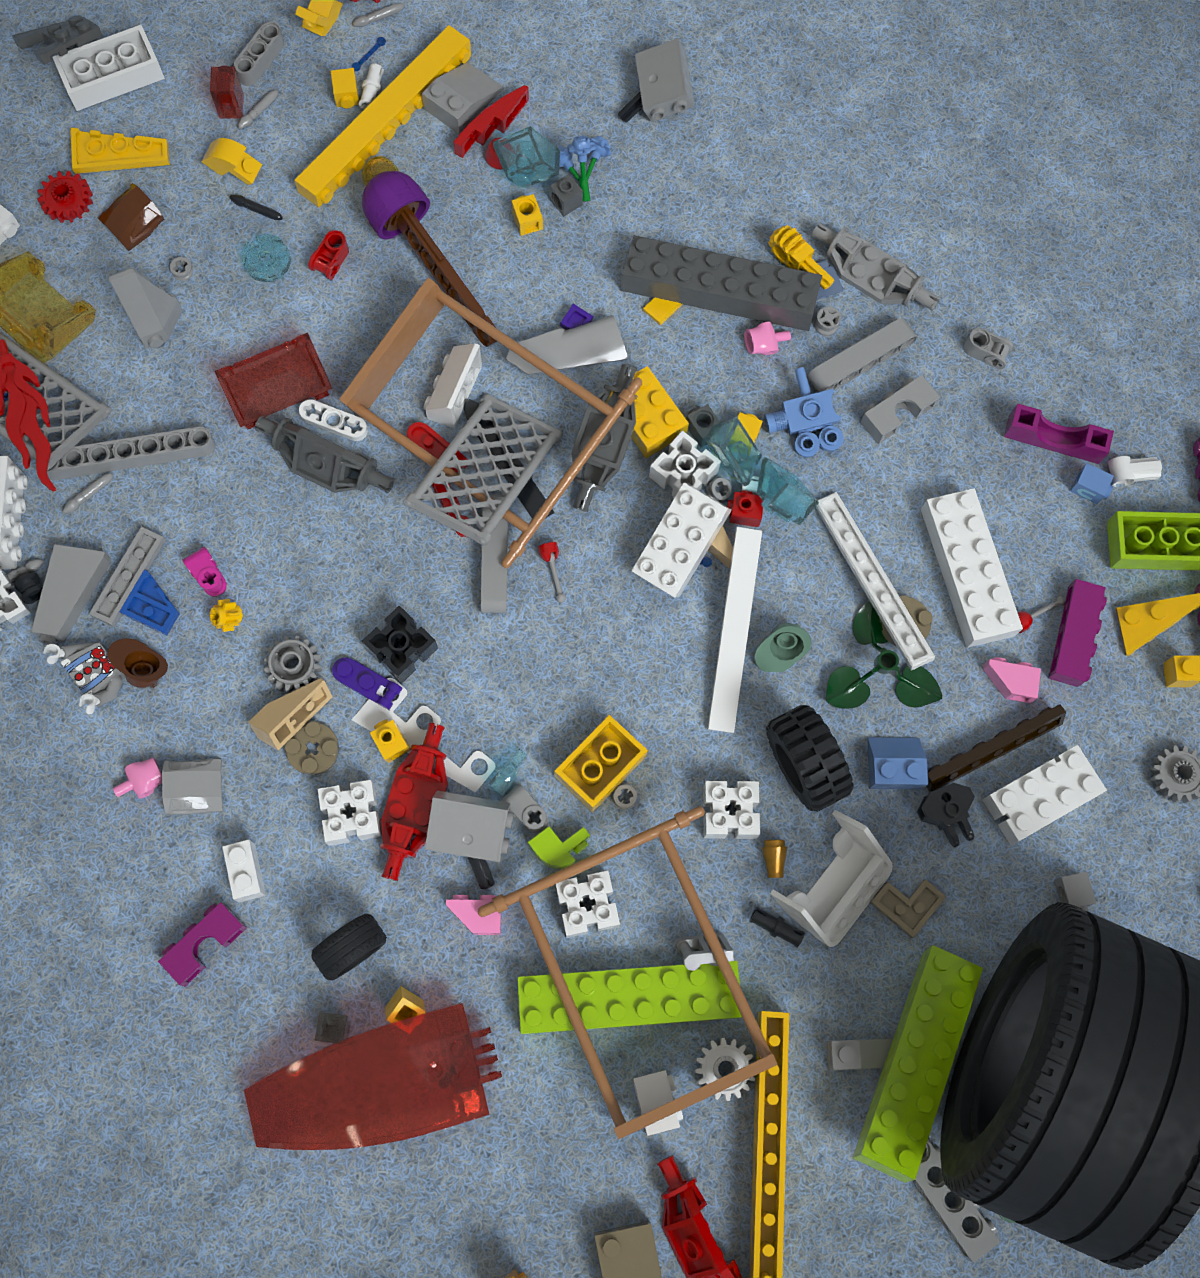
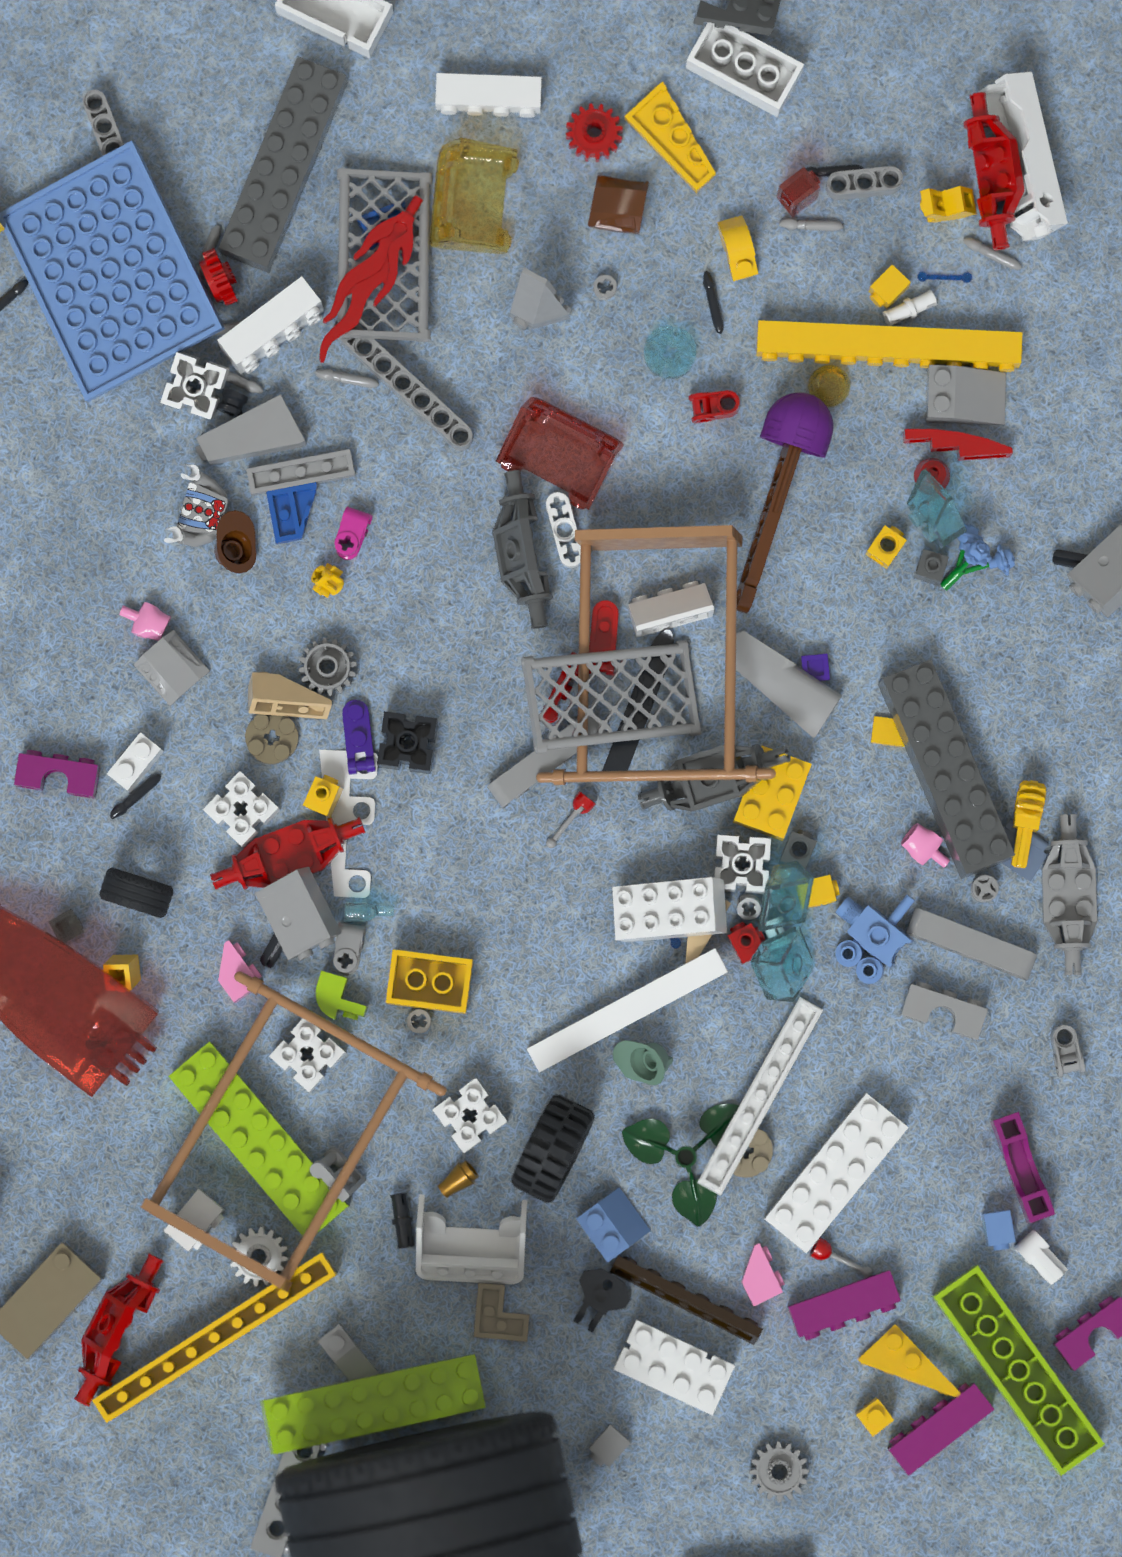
camera: 60 degrees right, 10 degrees up
(271, 893) = (121, 808): none -> black piece

